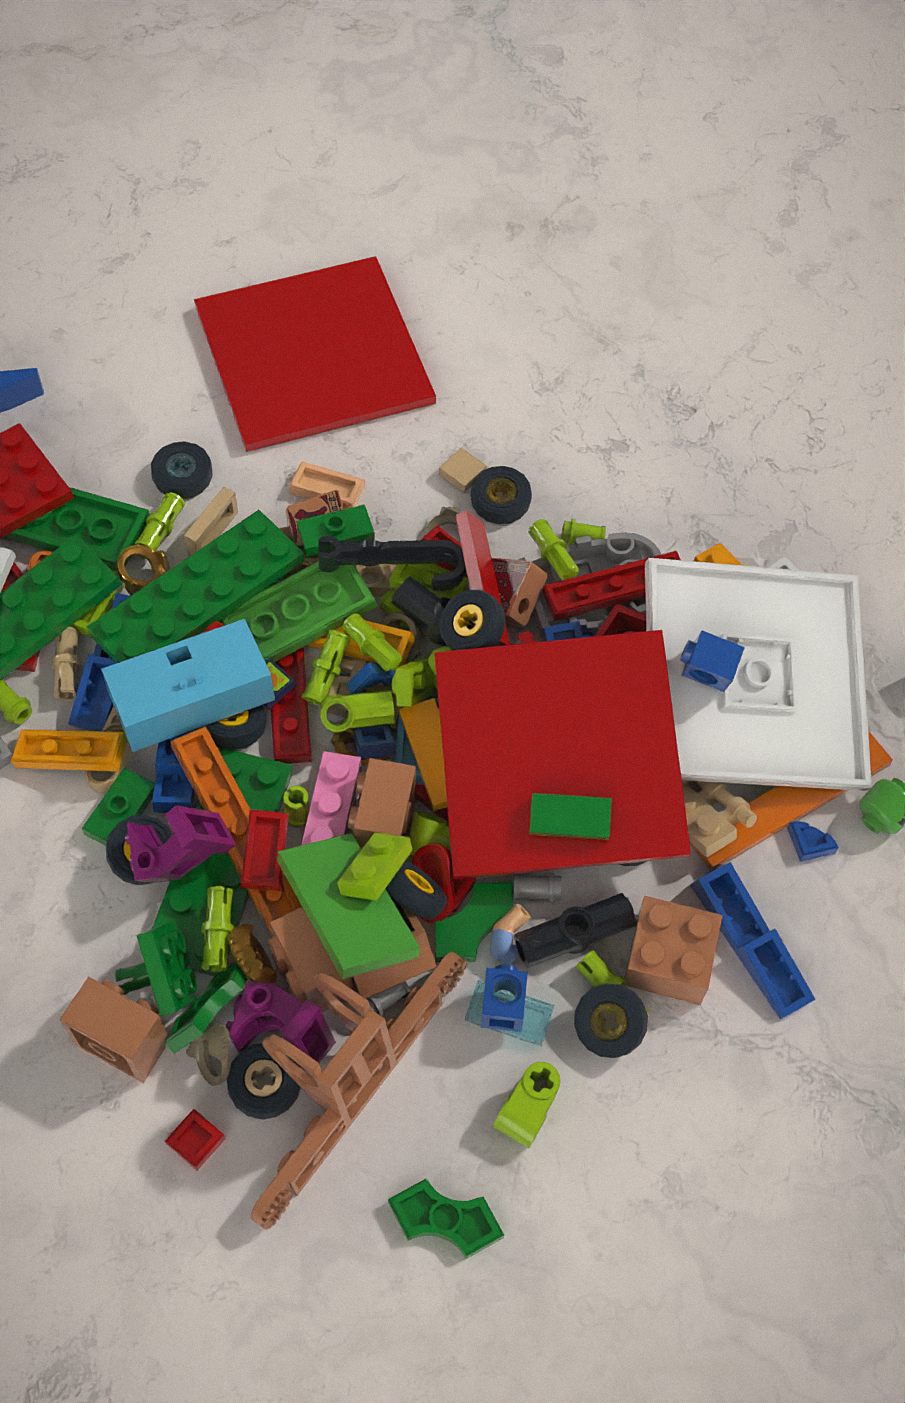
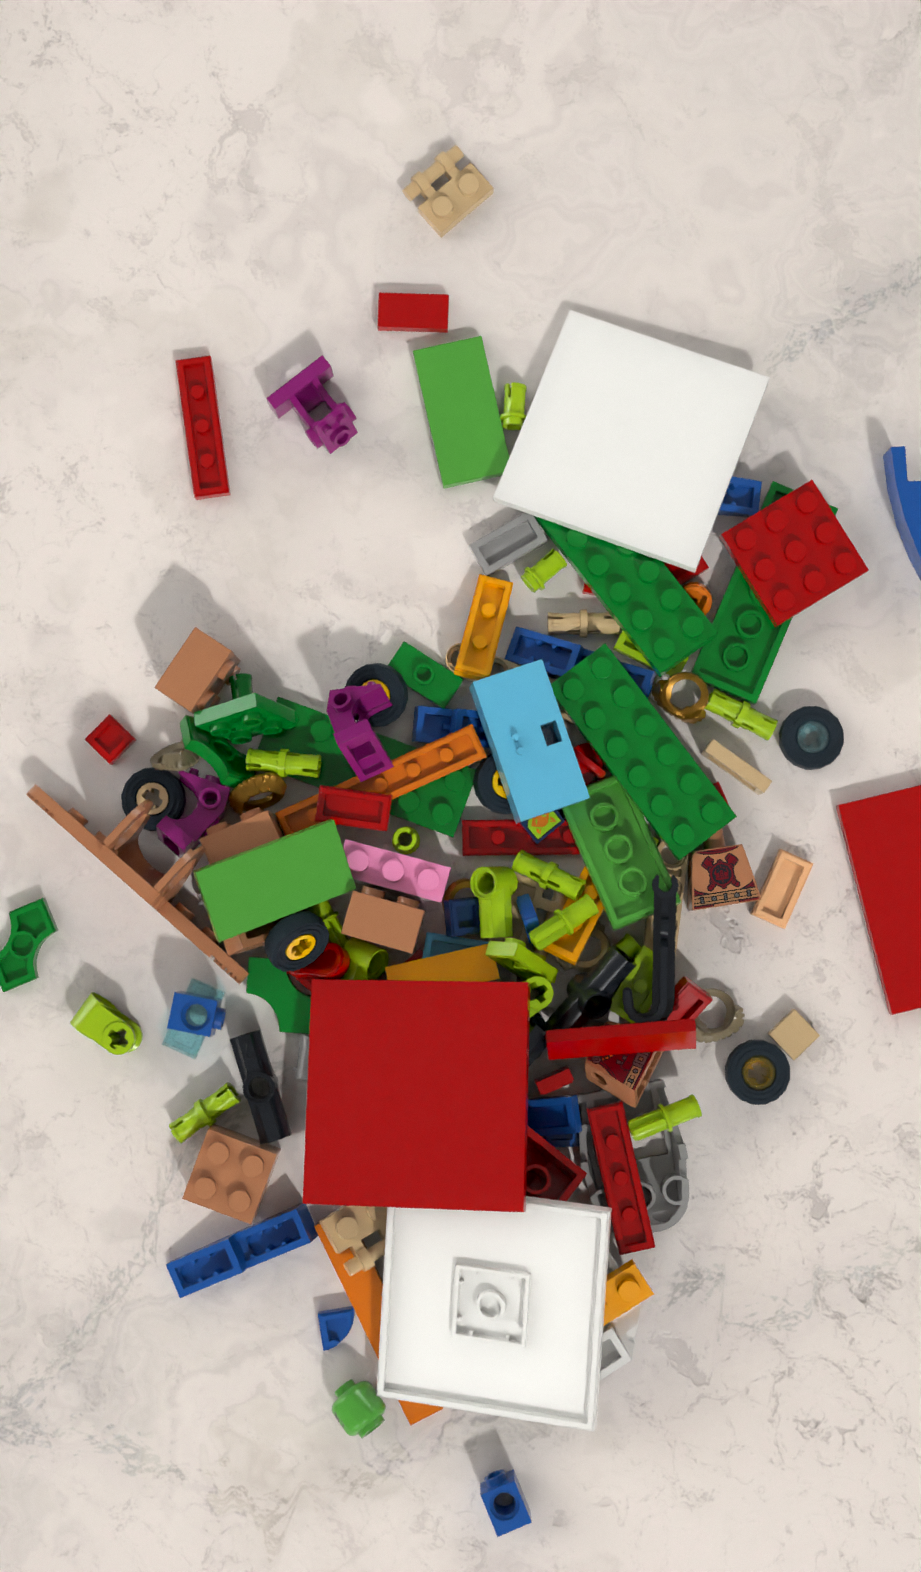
camera: 100 degrees right, 25 degrees up
(345, 525) = (704, 894): green plate -> none
(375, 866) = (306, 908): lime plate -> none
(461, 610) = (579, 1020): black bush -> none
(503, 932) = (266, 1020): arm -> none
(570, 816) = (347, 1095): green tile -> none
(573, 530) = (700, 1152): lime pin -> none
(590, 1022) = (154, 1108): black bush -> none
(711, 660) = (491, 1257): blue brick -> none

